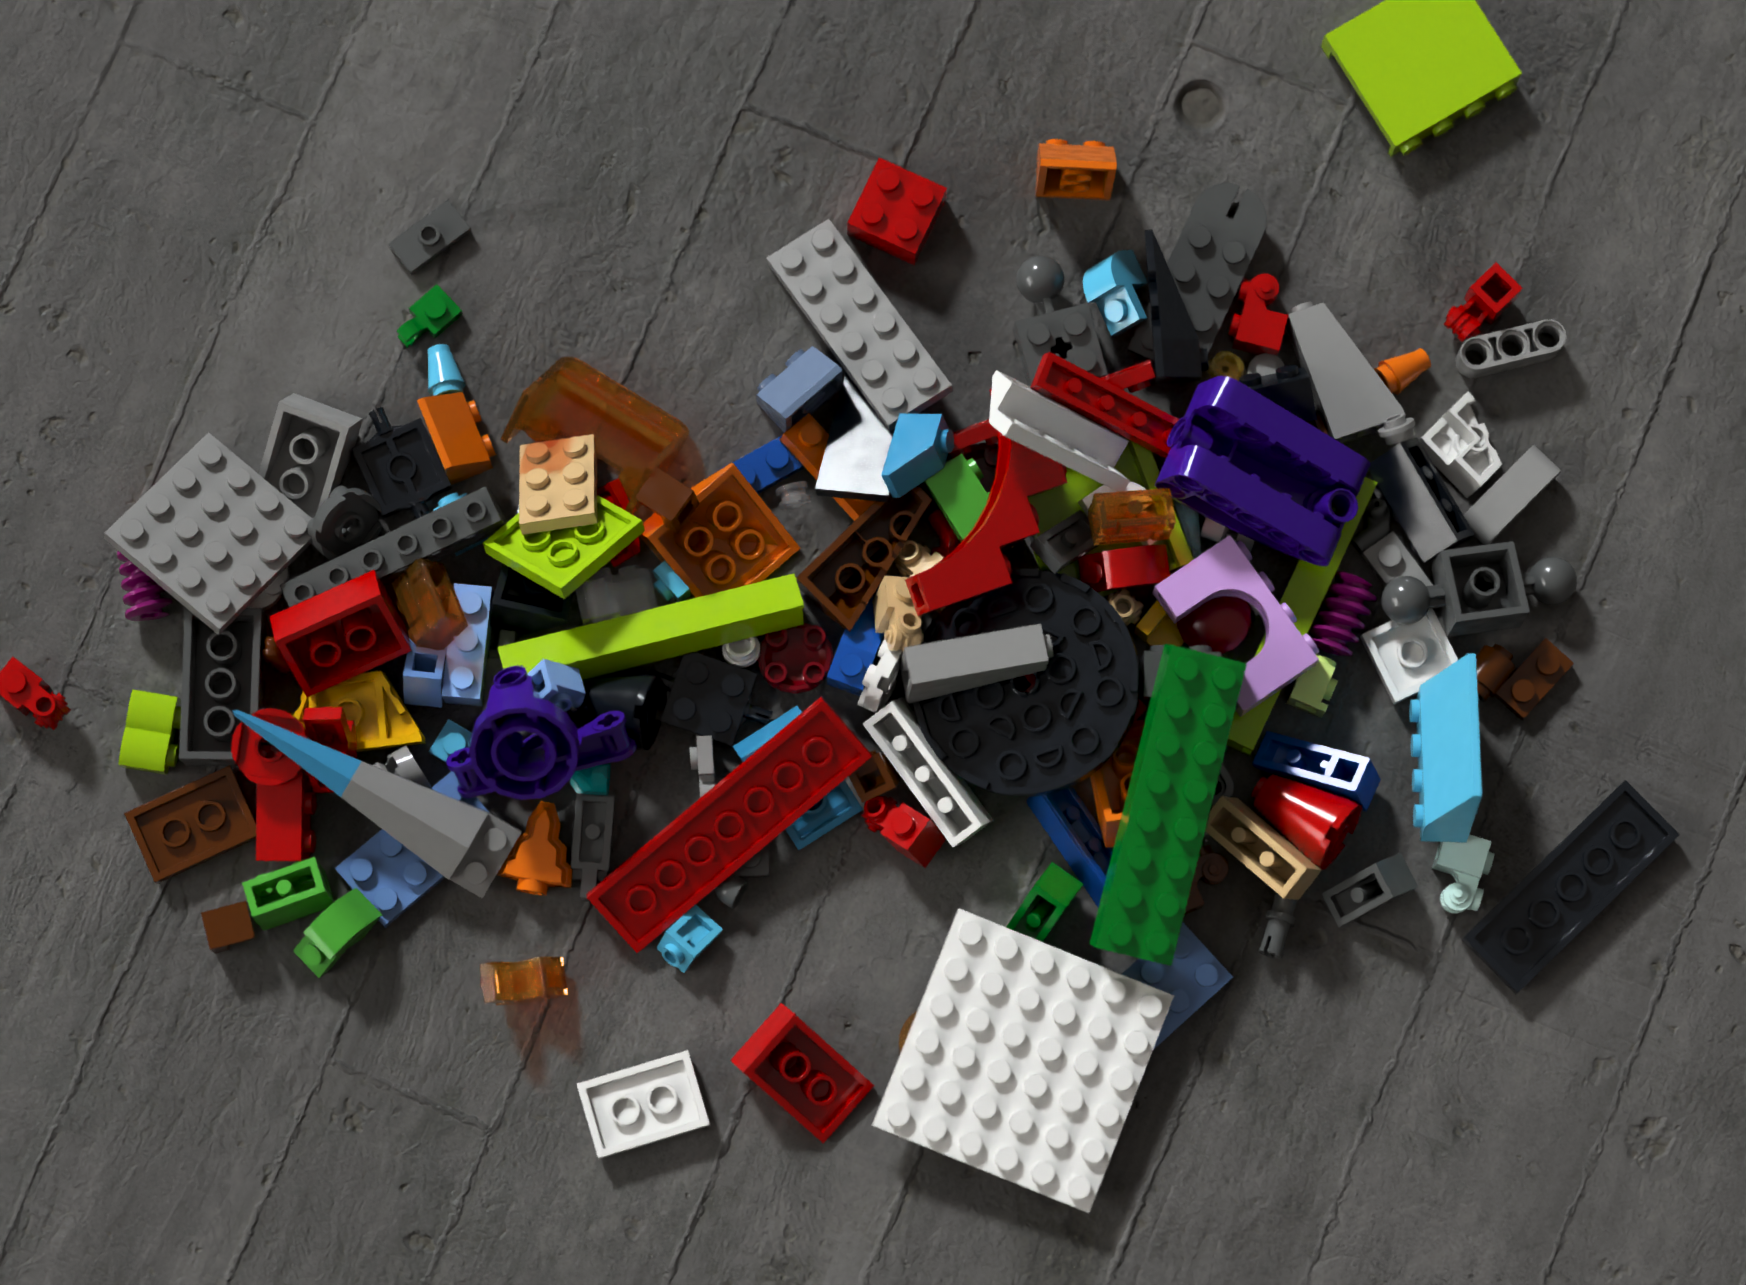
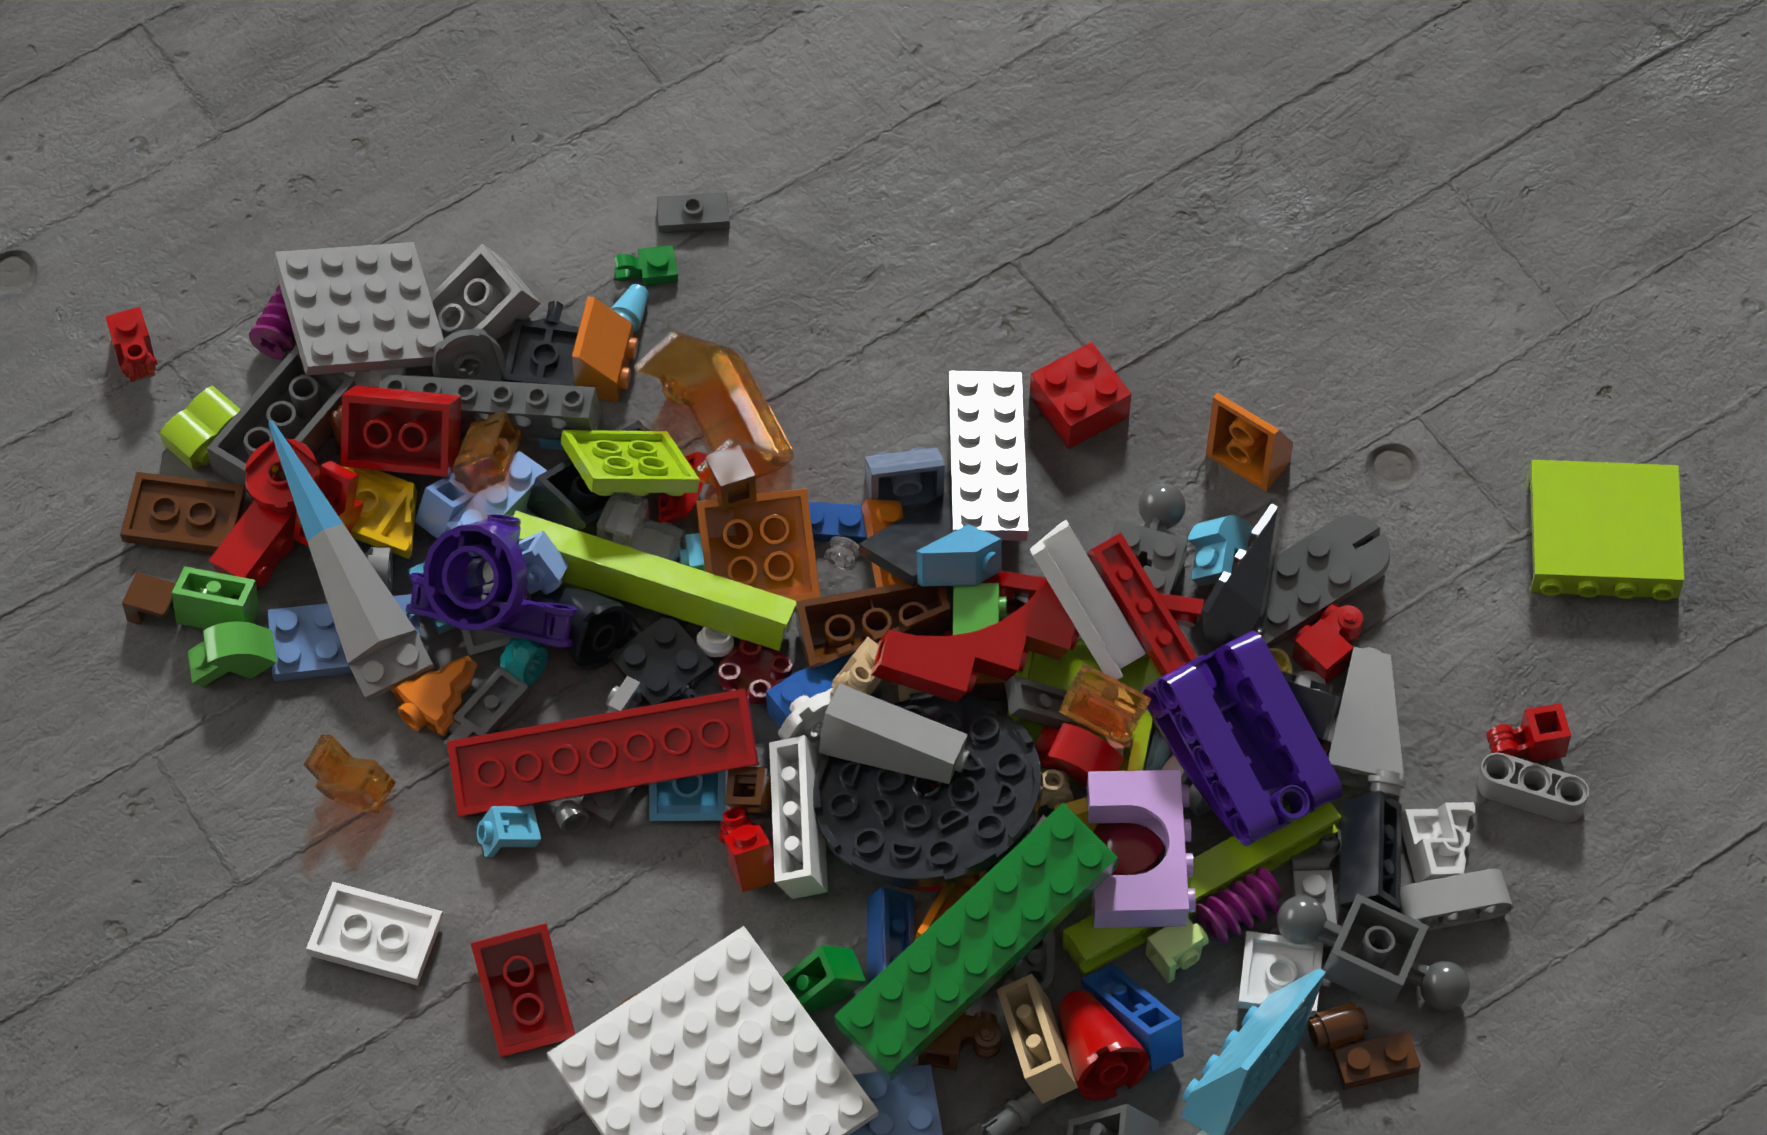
camera: 35 degrees right, 20 degrees down
(558, 484) = (656, 428): tan plate -> none
(1403, 369) = (1424, 751): orange cone -> none

